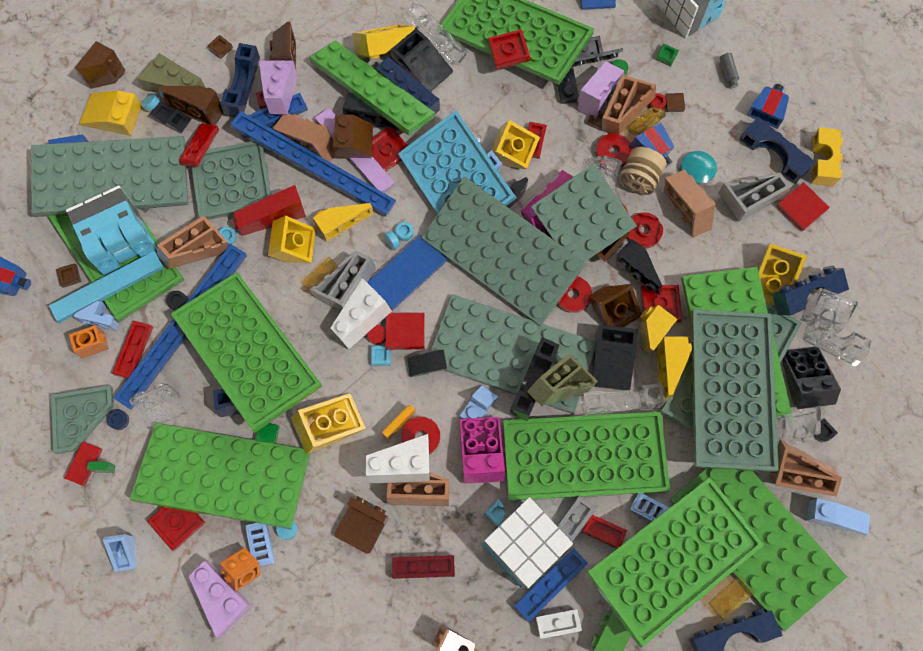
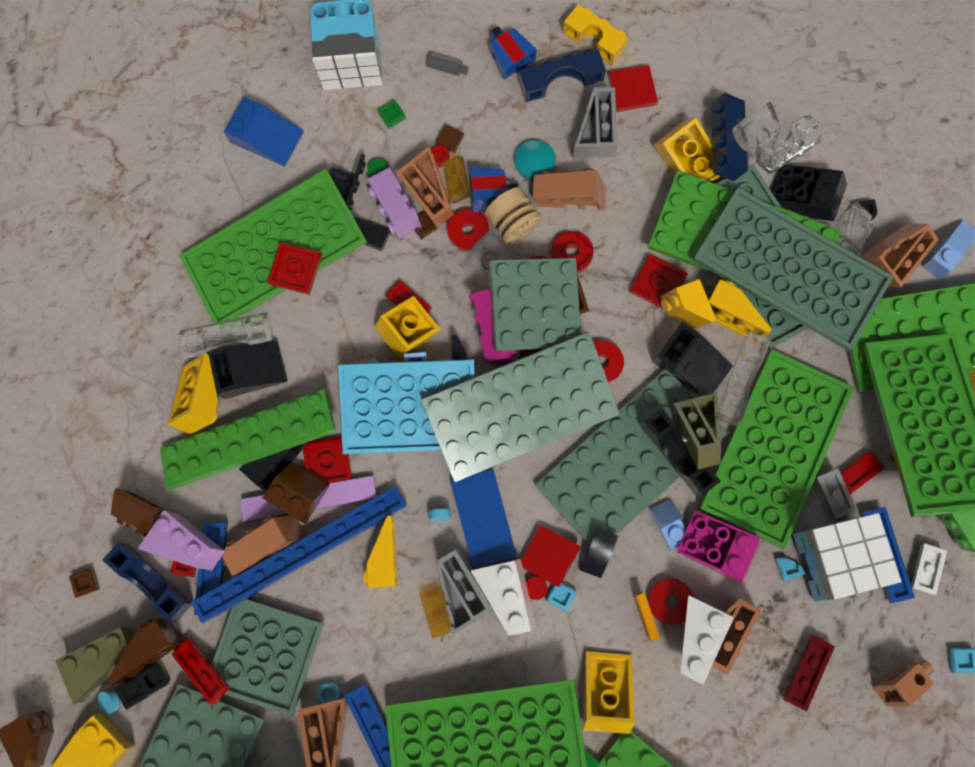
camera: 55 degrees left, 5 degrees up
(263, 213) = (332, 633): red slope -> none
(291, 240) = (378, 624): yellow slope -> none
(361, 525) = (735, 714): reddish brown bracket -> none
(404, 231) = (435, 496): medium azure tile -> none
(405, 81) = (267, 398): dark blue arch -> none
(615, 305) = (639, 328): reddish brown slope -> none
(638, 263) = (606, 279): black slope -> none
(649, 517) = (848, 428): light blue slope -> none

